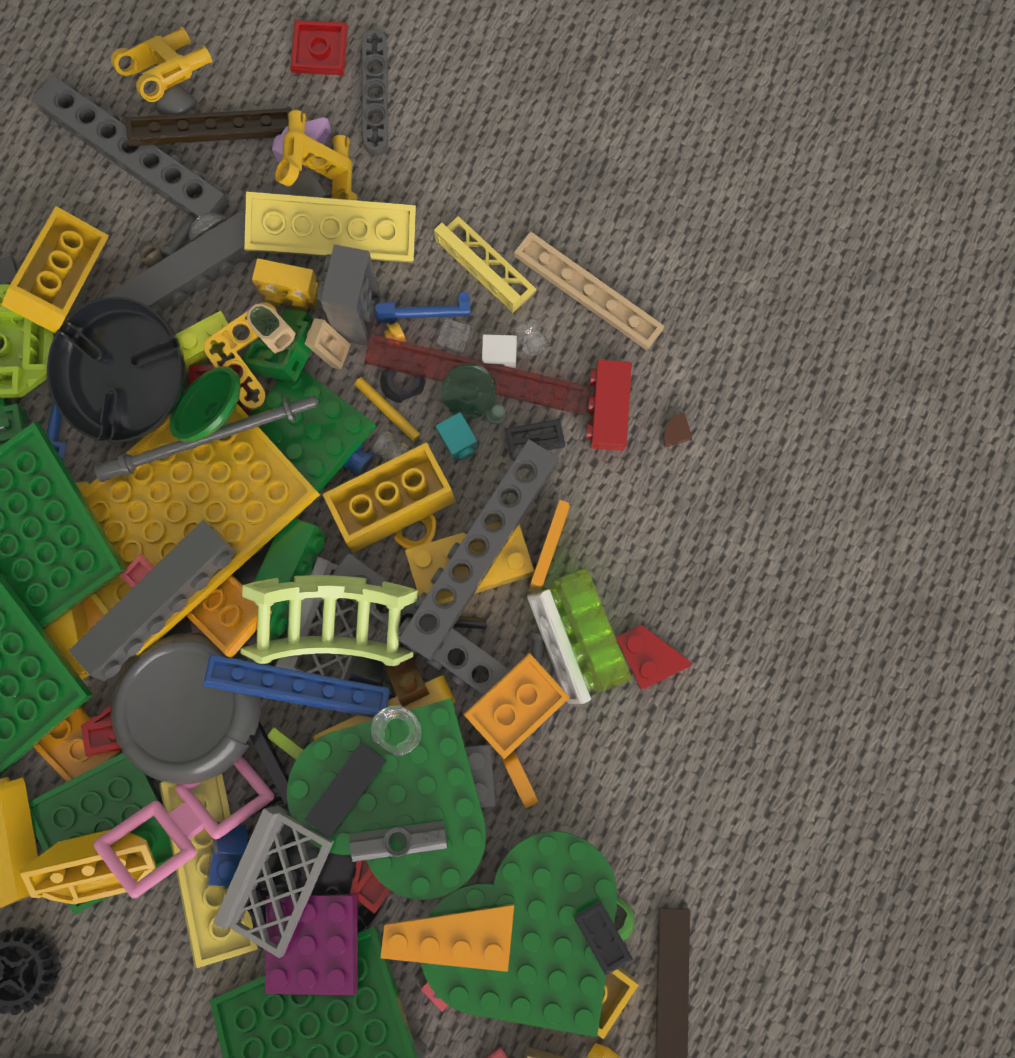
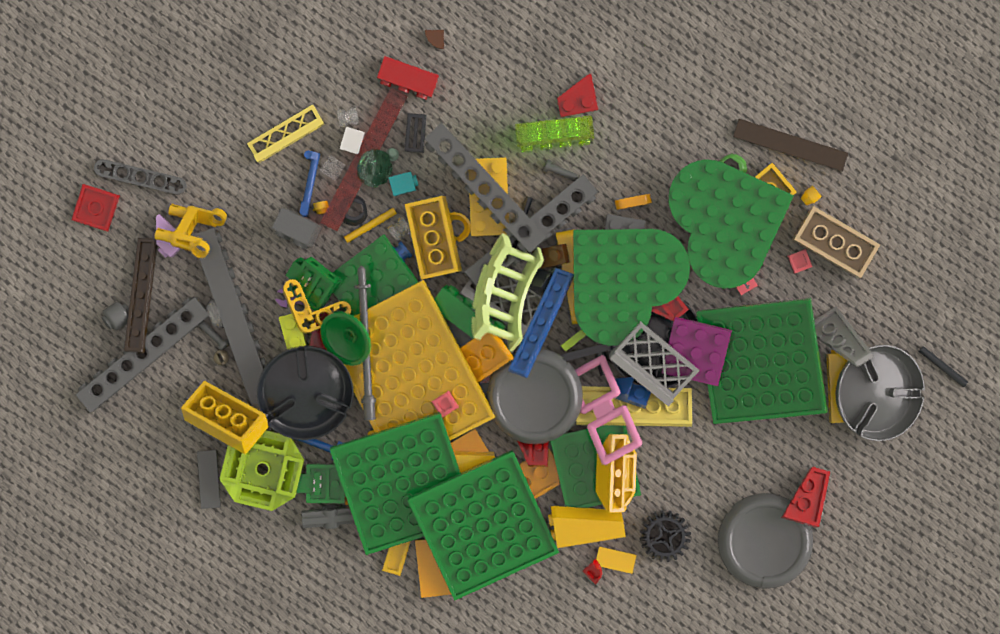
camera: 75 degrees left, 10 degrees up
(153, 602) = (466, 397): dark grey brick -> none
(161, 51) = (96, 307): yellow connector -> none
(270, 327) = (303, 285): rock -> none
(286, 285) = (271, 269): yellow piece -> none
(315, 224) = (238, 231): light yellow plate -> none
(327, 343) = (319, 252): tan plate -> none
(345, 790) = (612, 307): black tile -> none
(378, 844) = (651, 268): dark grey piece -> none
(384, 717) = (580, 257): clear piece -> none
(454, 939) = (716, 260): light orange wing -> none
(516, 705) = (587, 191): light orange tile -> none
(549, 546) = (493, 143): light orange tile -> none
(558, 646) = (558, 155): white tile -> none
(589, 291) = (324, 69): tan plate -> none
(602, 937) = (738, 176): black plate -> none

